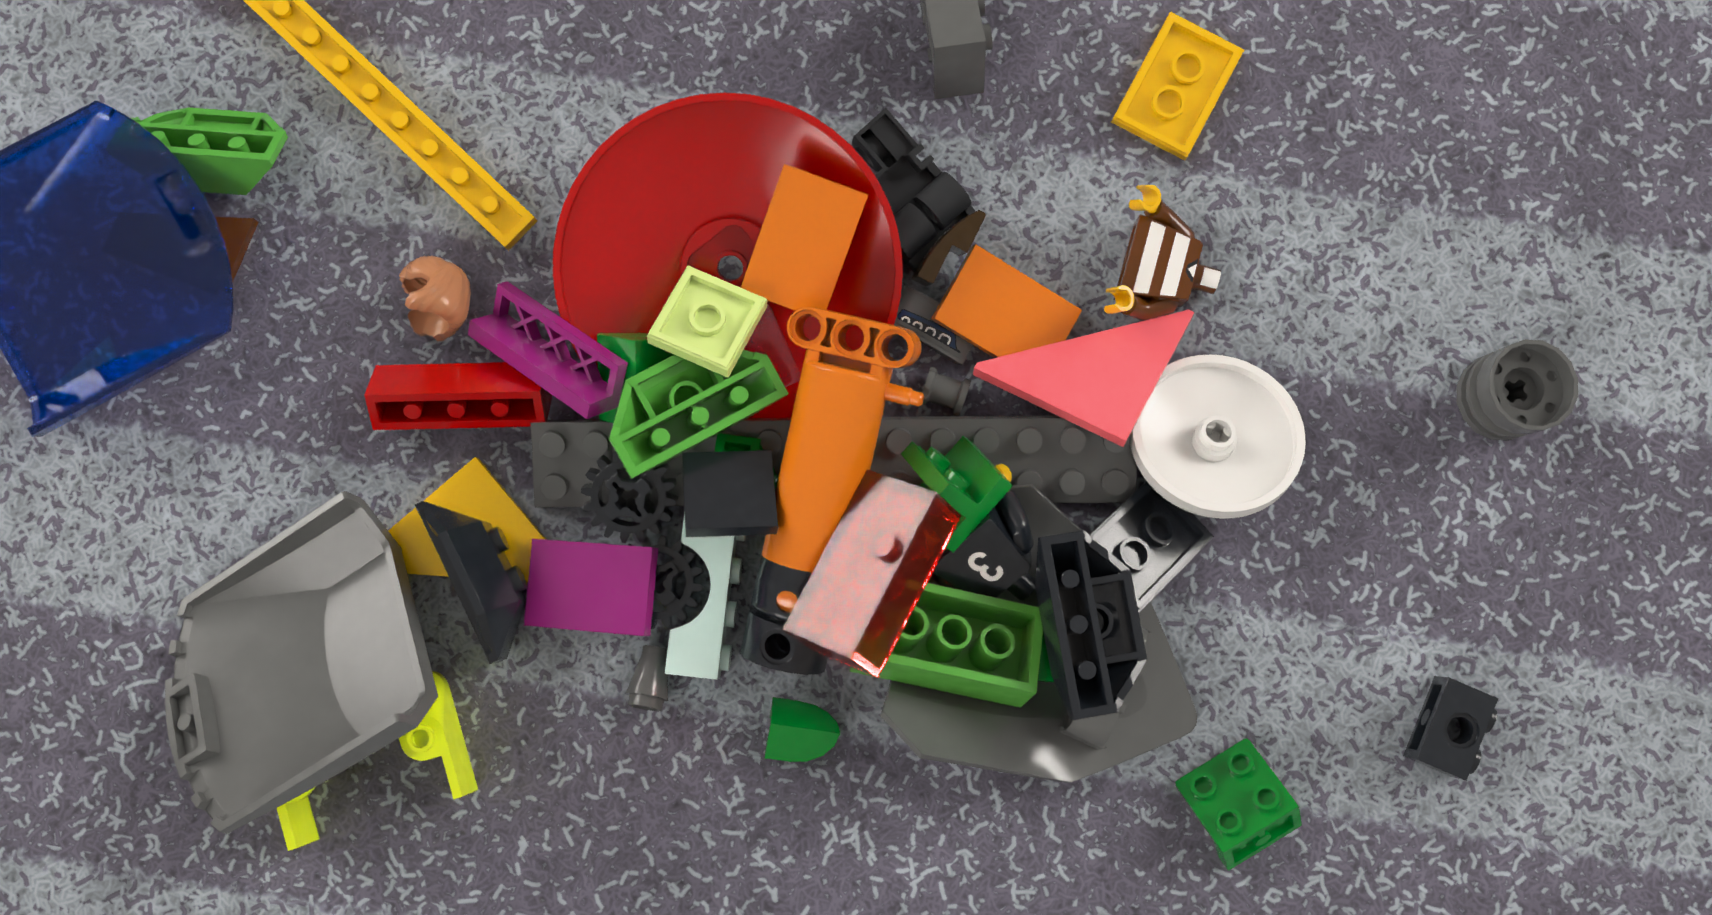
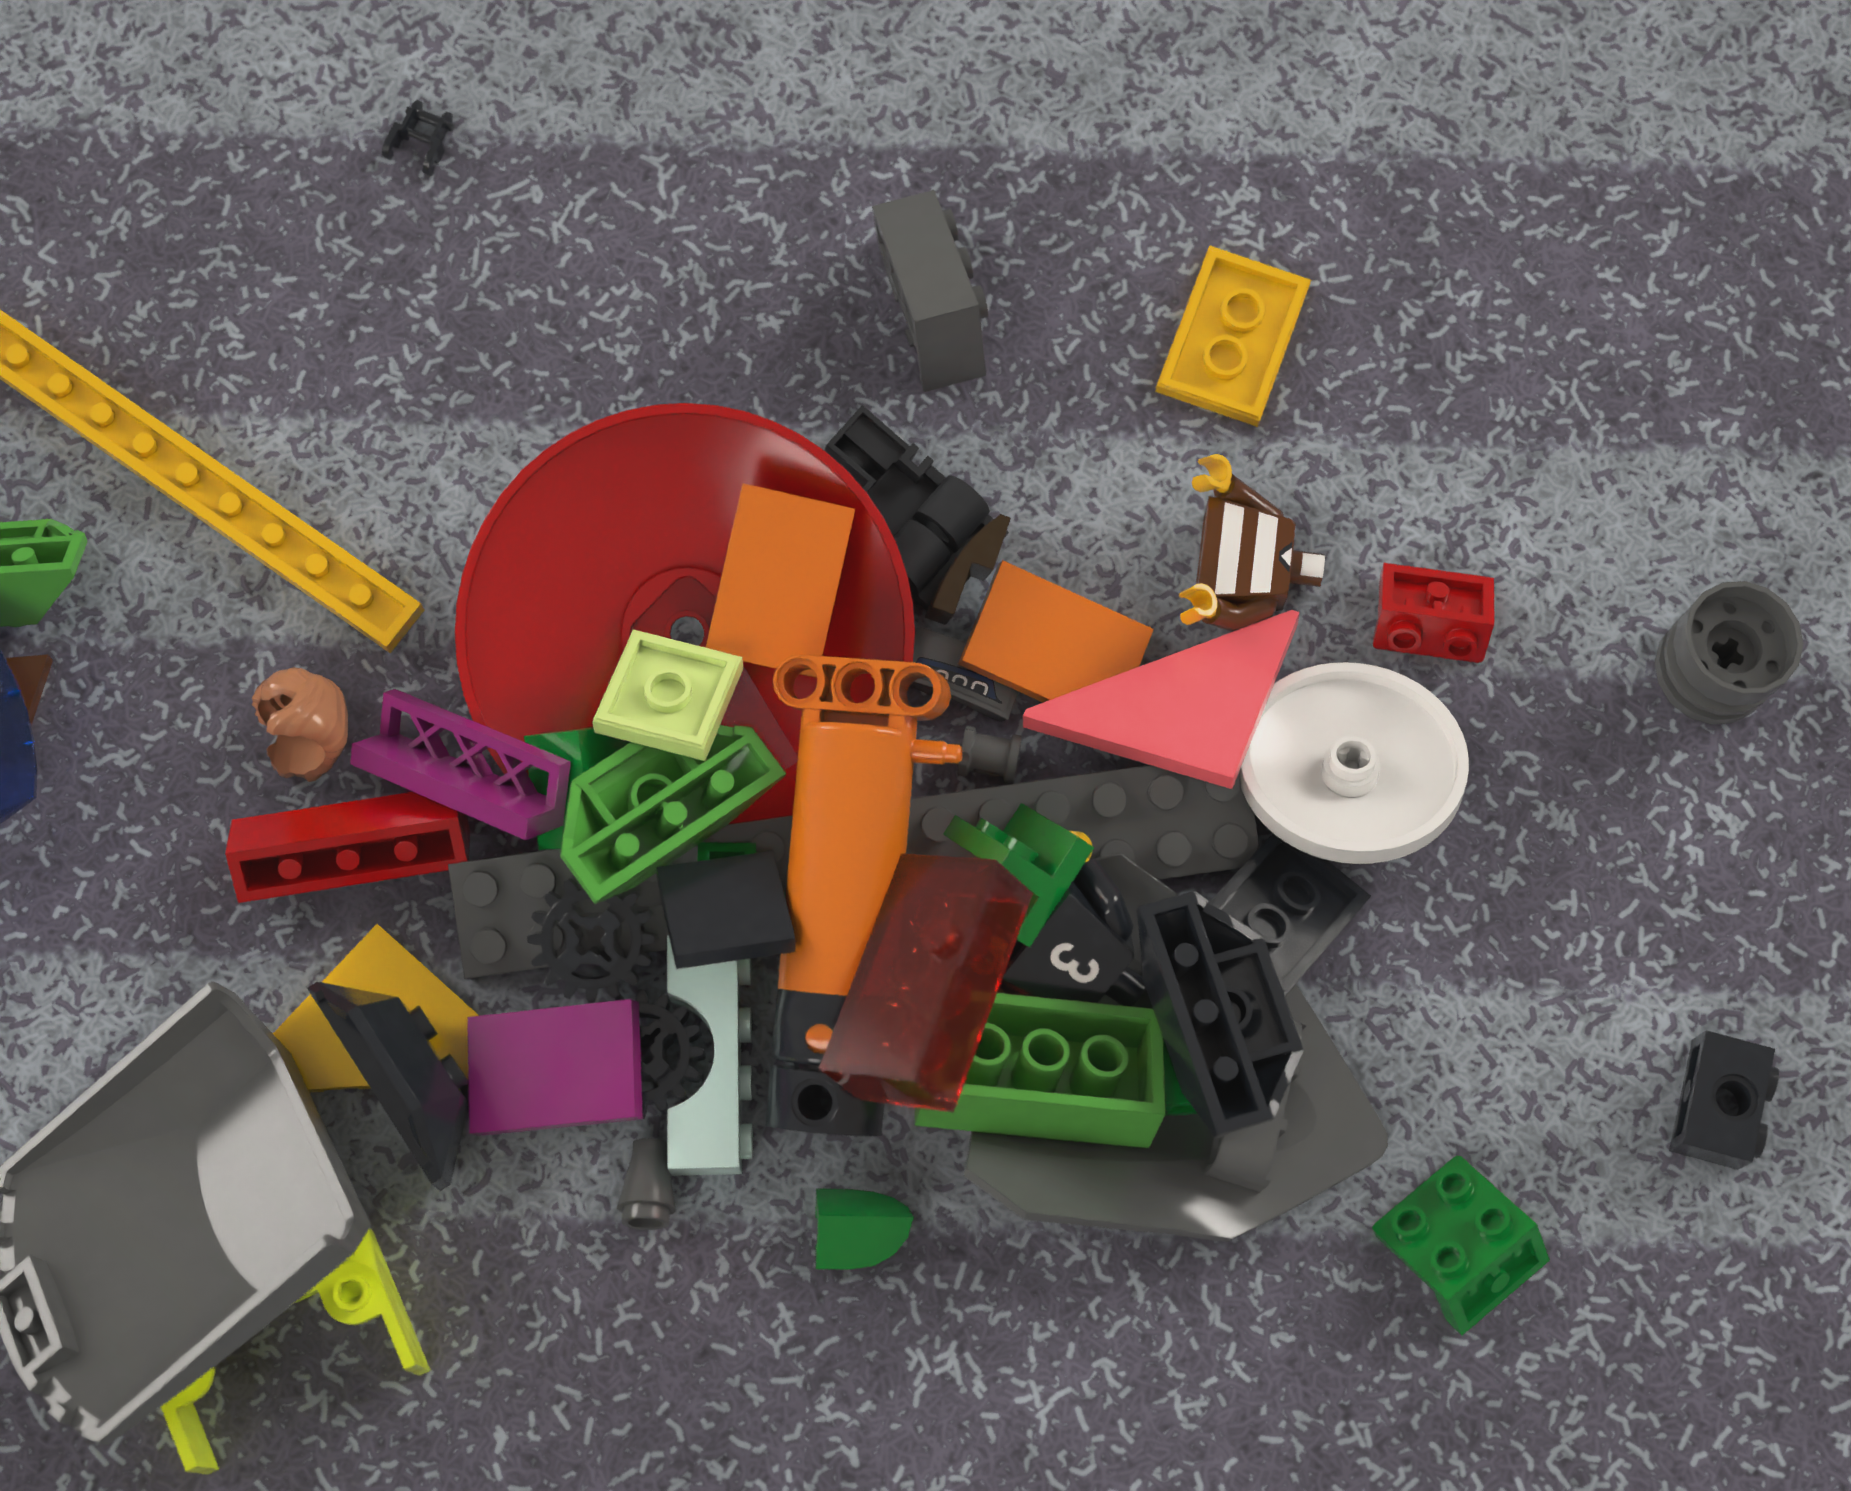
camera: 10 degrees left, 10 degrees down
(1297, 325) = (1434, 613): none -> red bracket

